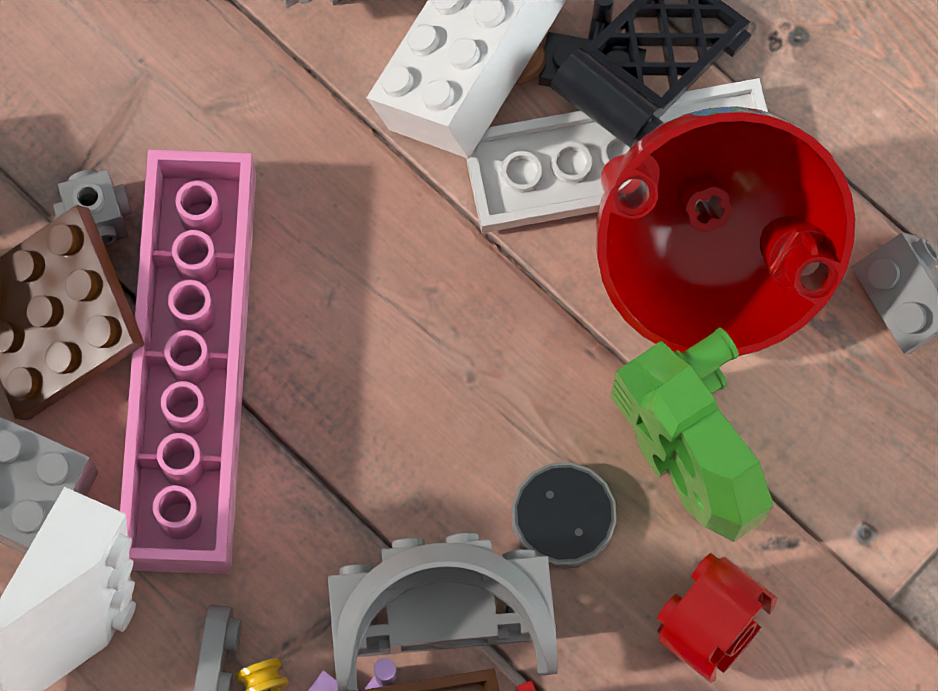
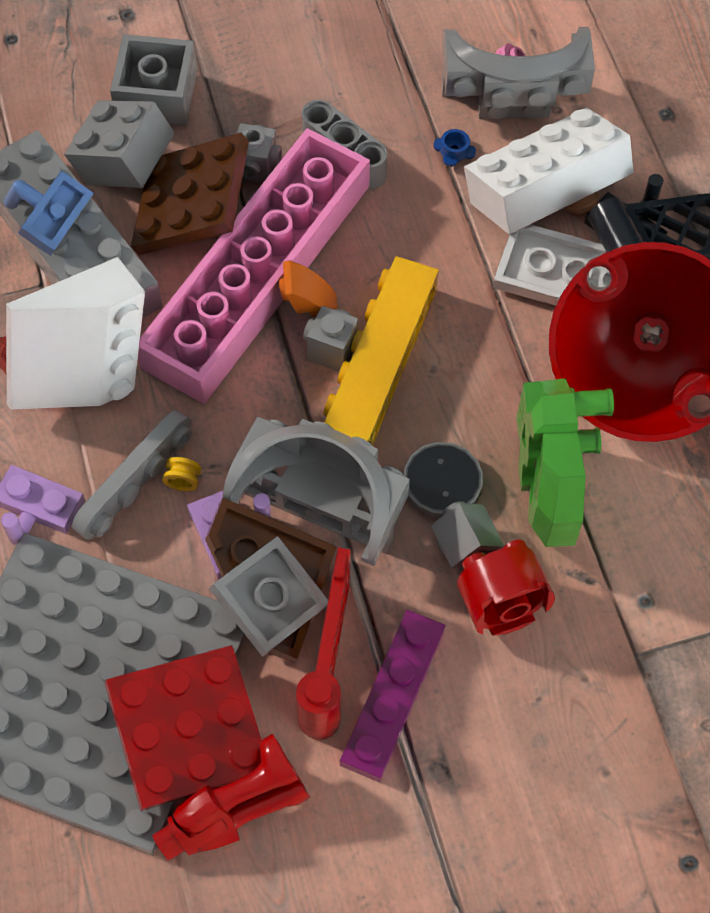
camera: 30 degrees right, 10 degrees down
(179, 118) = (334, 125): none -> light grey beam
(278, 369) = (305, 289): none -> orange slope
(328, 52) = (454, 139): none -> blue plate
(334, 408) = (330, 337): none -> light grey brick
(405, 399) = (381, 349): none -> yellow brick
(633, 572) = (465, 531): none -> light grey brick

